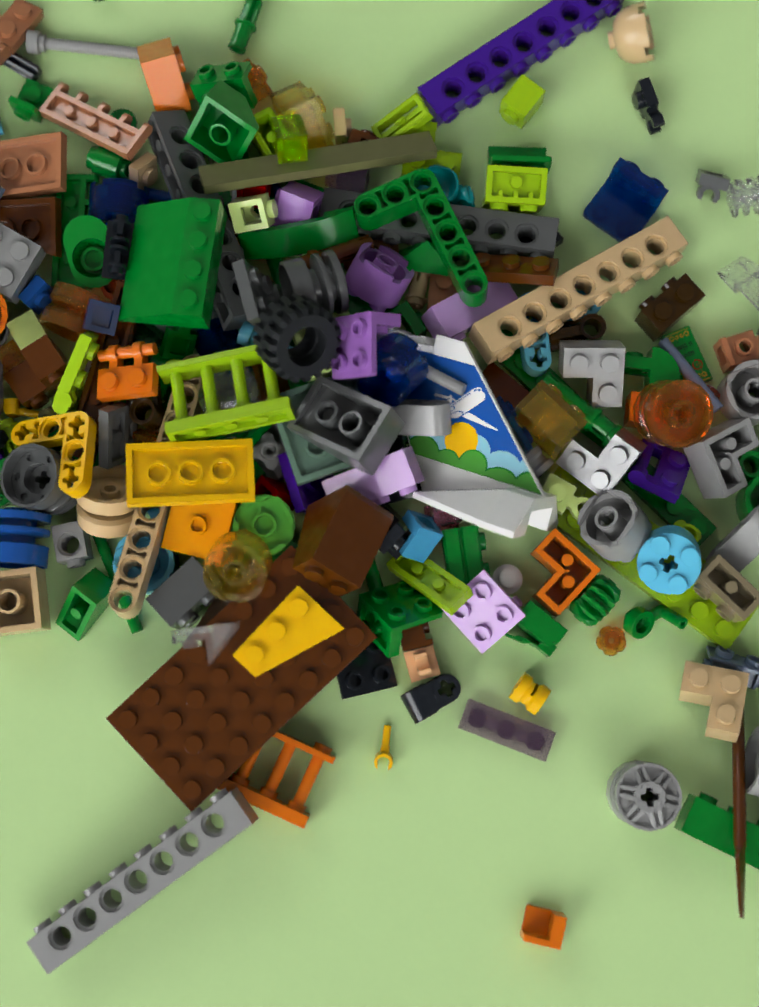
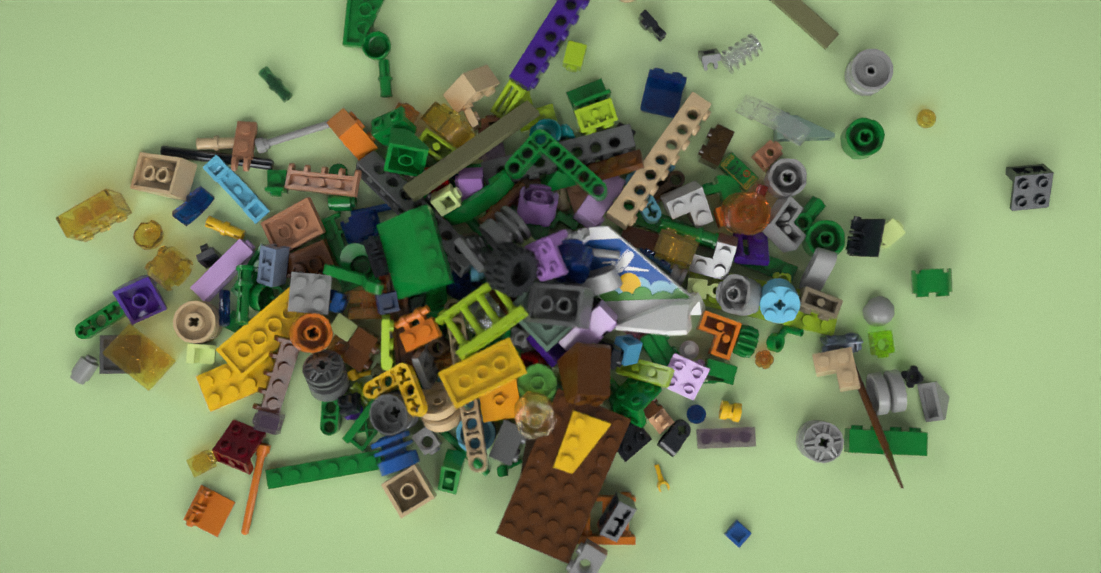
camera: 20 degrees left, 5 degrees up
(69, 260) = (368, 282): none -> green beam
(144, 170) = (366, 199): tan plate -> none
(160, 635) = (502, 470): none -> green hand
(215, 636) = (538, 459): clear slope -> none
(289, 138) = (449, 145): clear neon green brick -> none
(293, 772) = (616, 516): none -> black brick
(358, 79) = (471, 87): none -> tan brick
(463, 881) = (737, 533): none -> blue tile
(477, 676) = (696, 414): none -> clear blue plate
(543, 926) = (793, 539): orange panel -> none
(688, 372) = (746, 183): sand blue bar -> none

